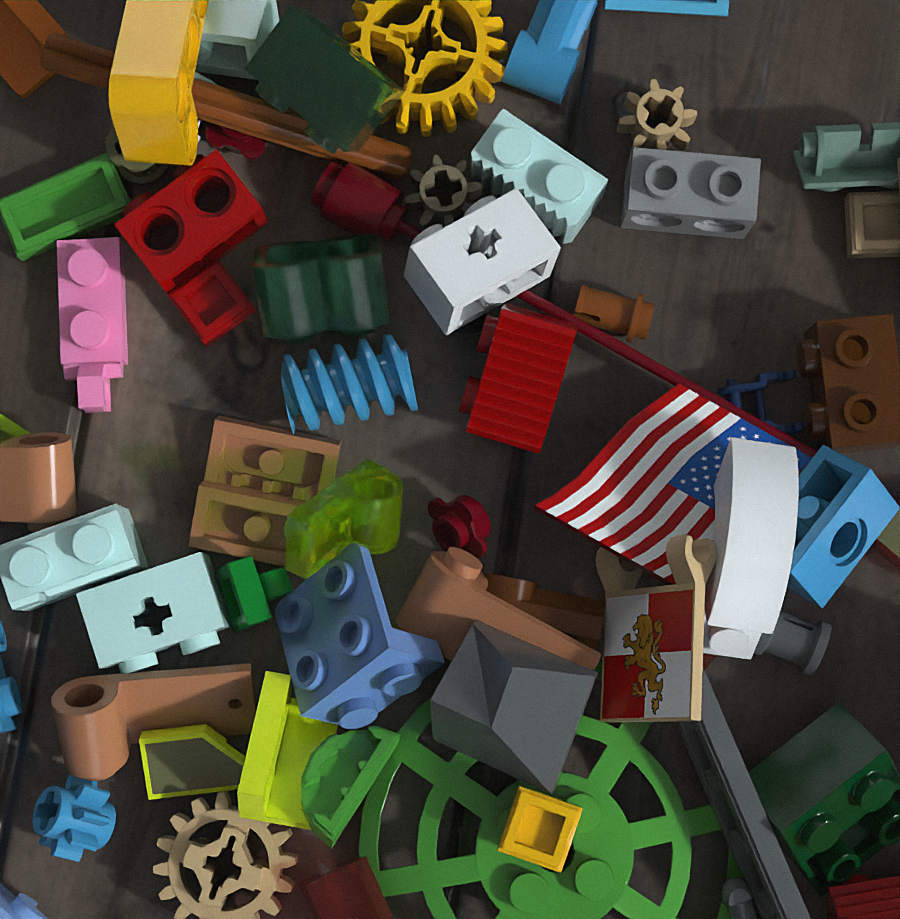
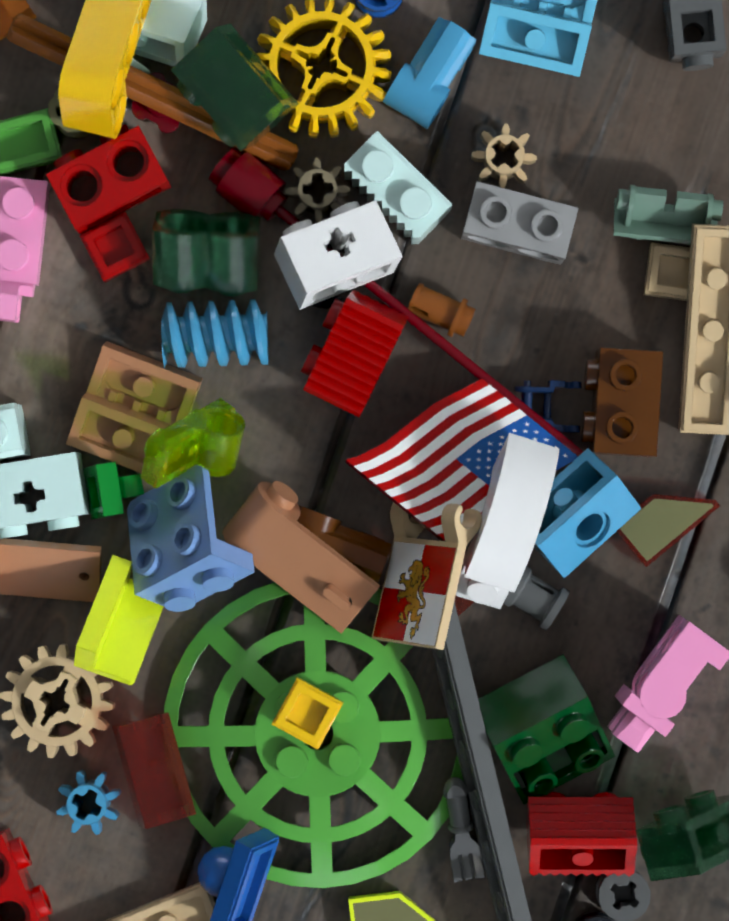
camera: 10 degrees right, 5 degrees up
(188, 761) = (40, 616): olive tile -> none
(341, 776) = (159, 647): bright green tile -> none
(460, 524) = (287, 463): dark red plate -> none
(511, 705) = (301, 613): dark grey slope -> none

